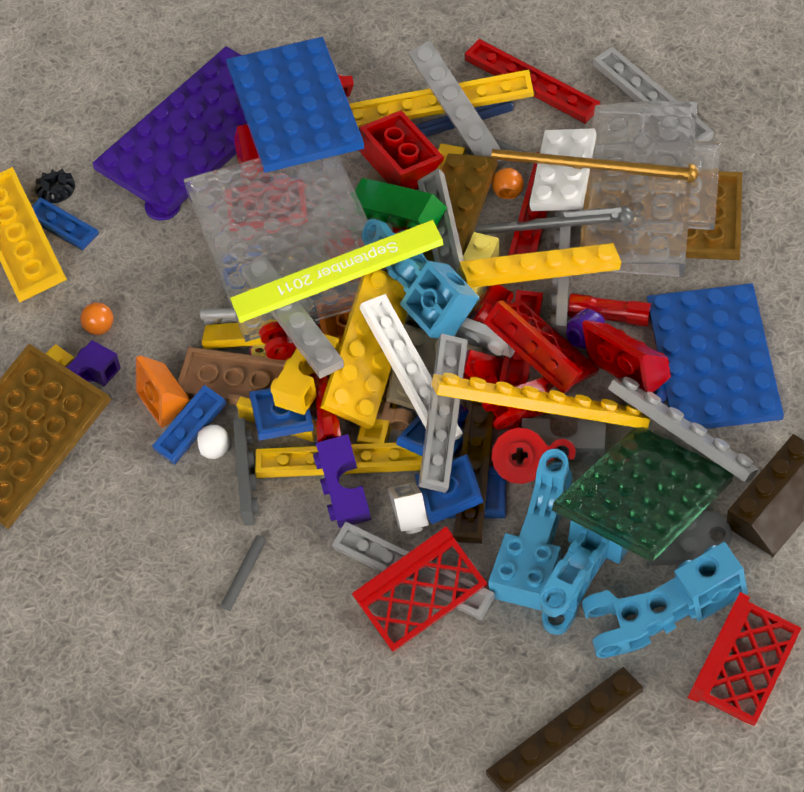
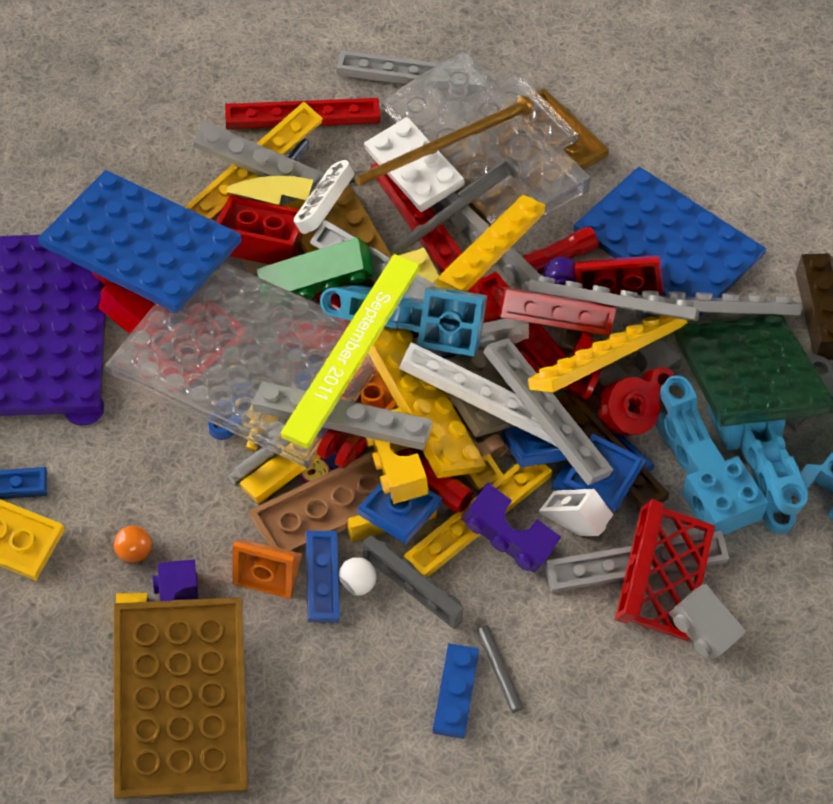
camera: 50 degrees left, 0 degrees up
(199, 565) = (455, 691): none -> blue plate
(408, 645) = (706, 622): none -> light grey brick
(437, 126) = (273, 187): none -> light yellow slope
(461, 152) = (324, 196): none -> white beam
(507, 183) = (375, 203): orange piece -> none
(594, 372) = (626, 300): none -> light grey plate

